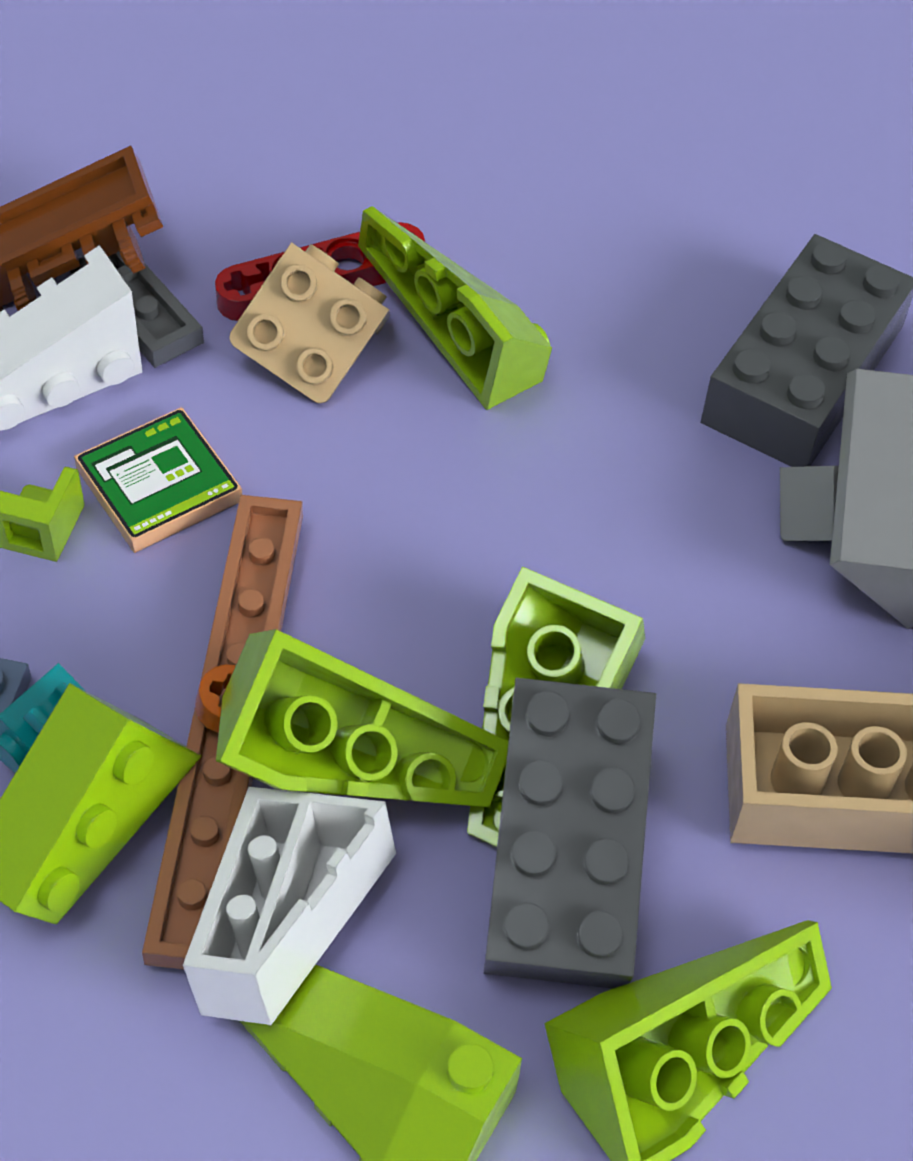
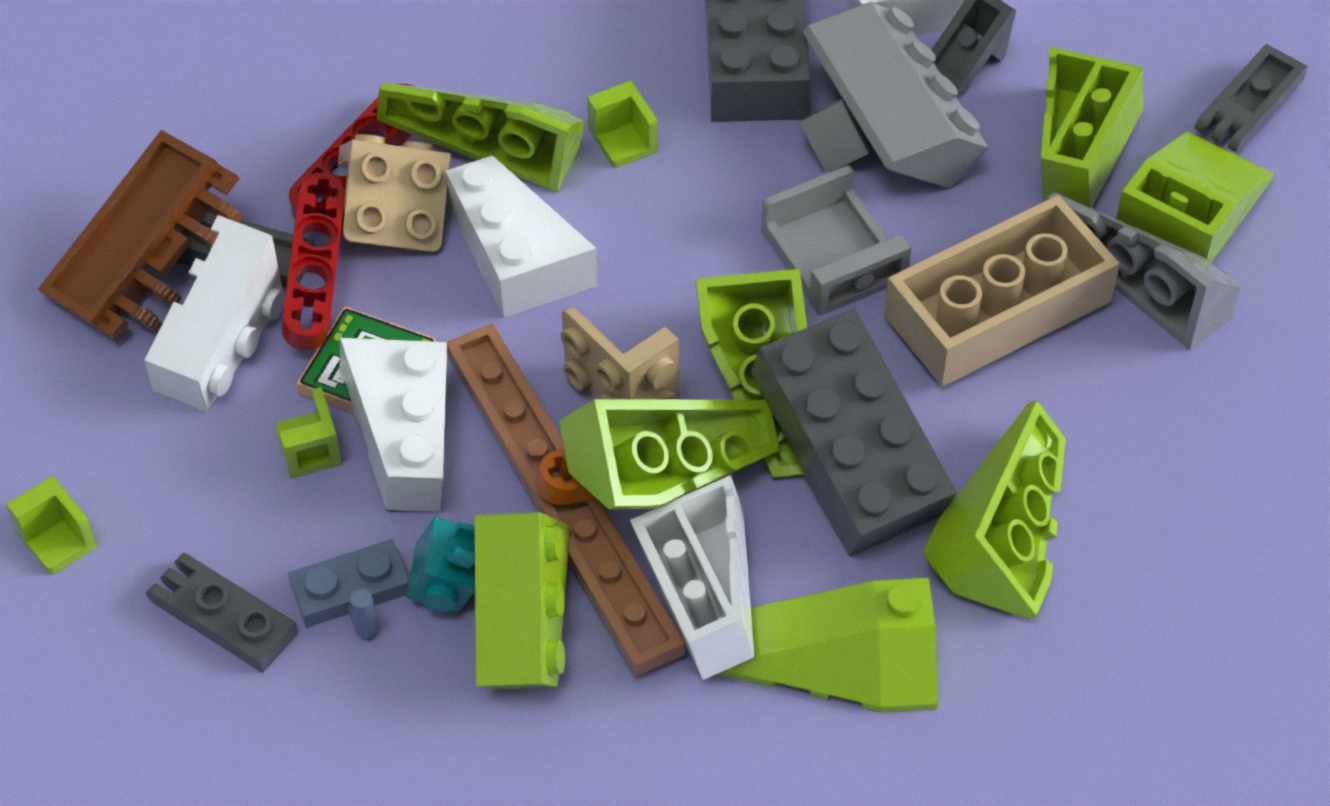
camera: 30 degrees left, 0 degrees up
(132, 546) = (401, 413): none -> white wedge
(174, 339) = (313, 260): none -> red beam
(387, 637) = (606, 373): none -> tan bracket
(393, 433) = (517, 238): none -> white wedge
(597, 375) = (622, 124): none -> lime panel
(727, 611) = (832, 240): none -> light grey panel

